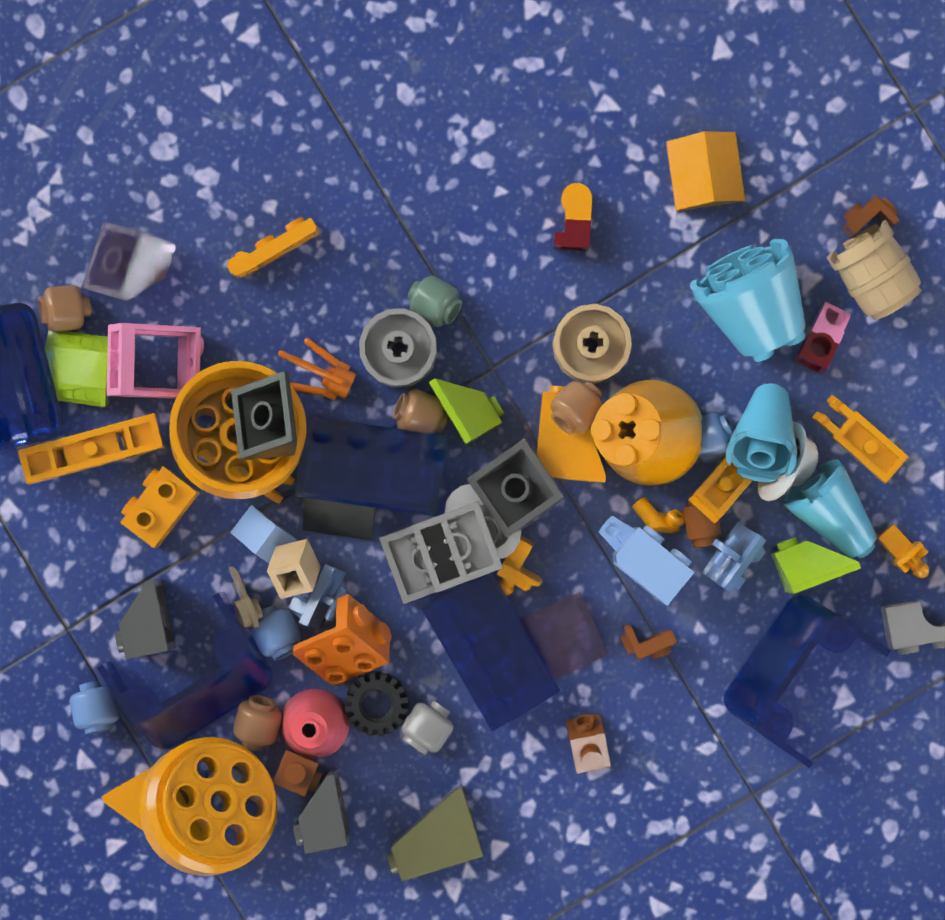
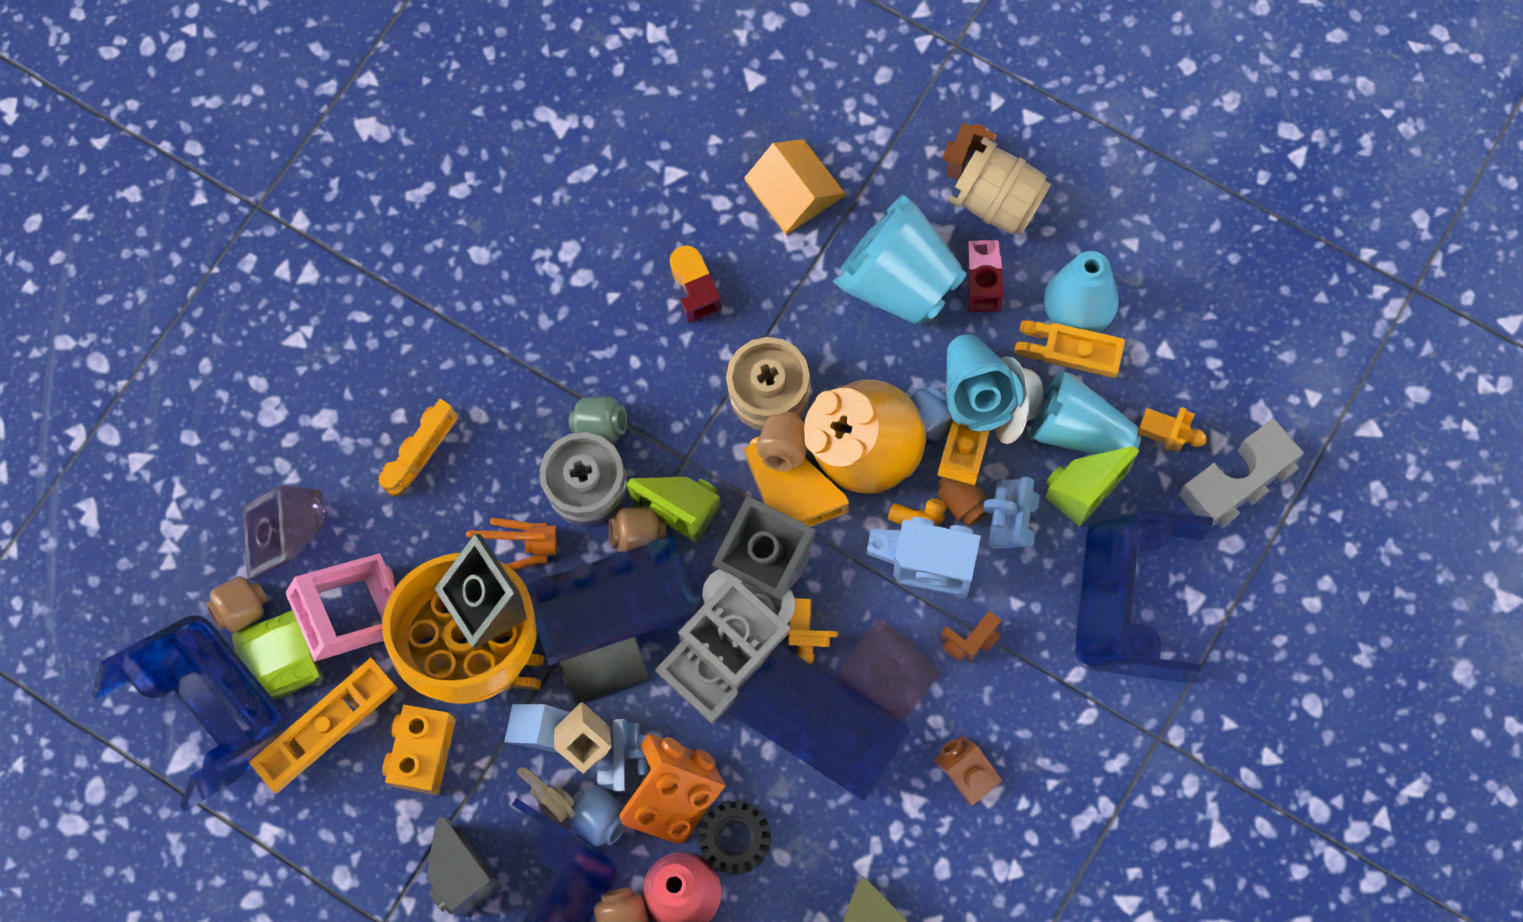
camera: 20 degrees left, 15 degrees down
(427, 727) = (797, 834): light grey head -> none
(882, 401) = (1083, 293): none -> medium azure cone

